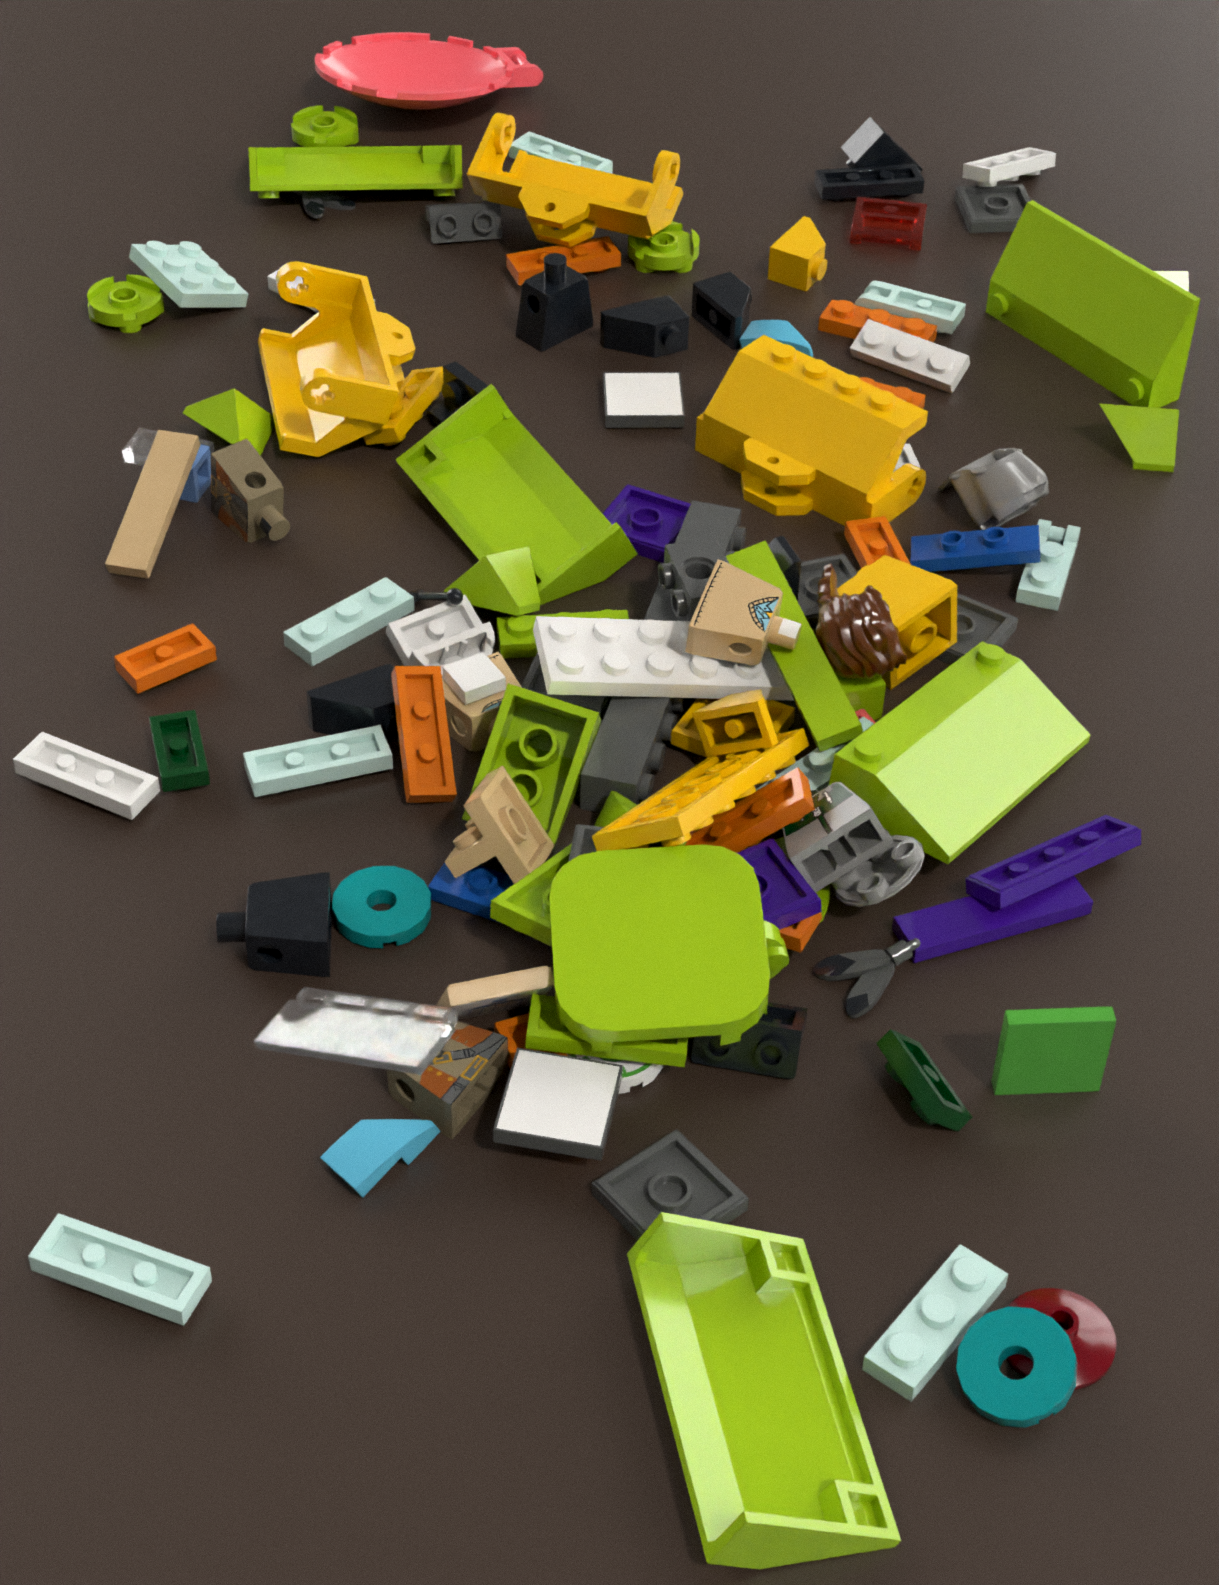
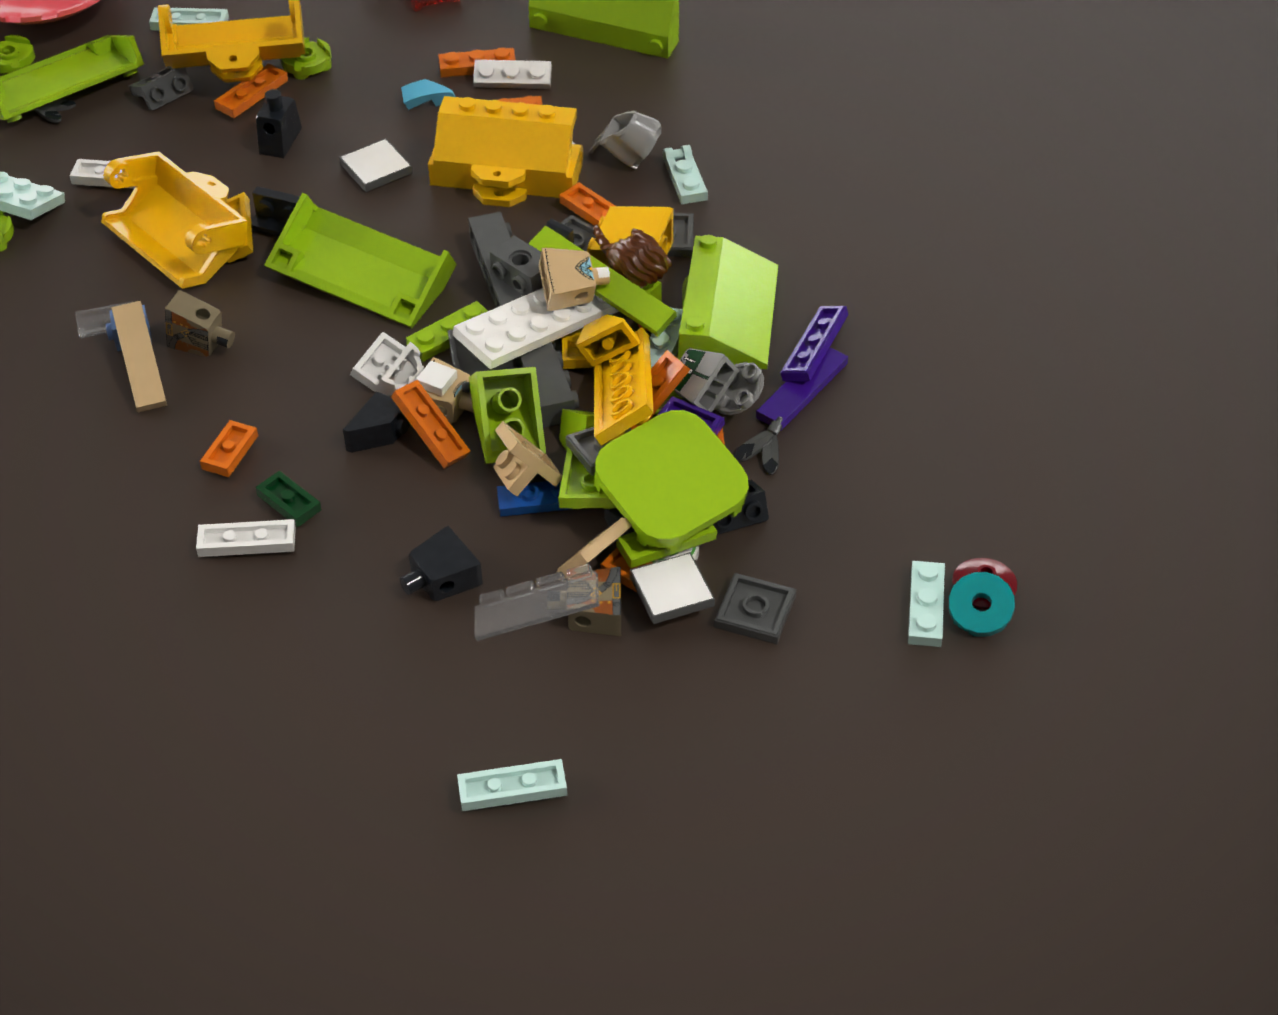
camera: 30 degrees left, 5 degrees up
(233, 418) = (137, 282): lime slope -> none
(317, 760) = (375, 467): light aqua plate -> none
(348, 621) = (317, 378): light aqua plate -> none
(374, 1147) = (590, 660): medium azure slope -> none
(376, 886) = (488, 519): teal tile -> none
(453, 596) = (380, 335): black hinge -> none
(502, 583) = (395, 317): lime slope -> none
(646, 328) = (343, 116): black slope -> none
(647, 519) = (444, 235): dark purple tile -> none
(722, 307) = (379, 85): black slope -> none
(757, 1396) = (872, 678): lime slope -> none
(798, 256) = (398, 32): yellow slope -> none
(913, 304) = (488, 39): light aqua plate -> none
(915, 1070) = (824, 484): dark green plate -> none
(976, 548) = (643, 181): blue plate -> none
(1053, 1050) = (892, 442): bright green tile -> none
(1146, 434) = (685, 72): lime slope -> none

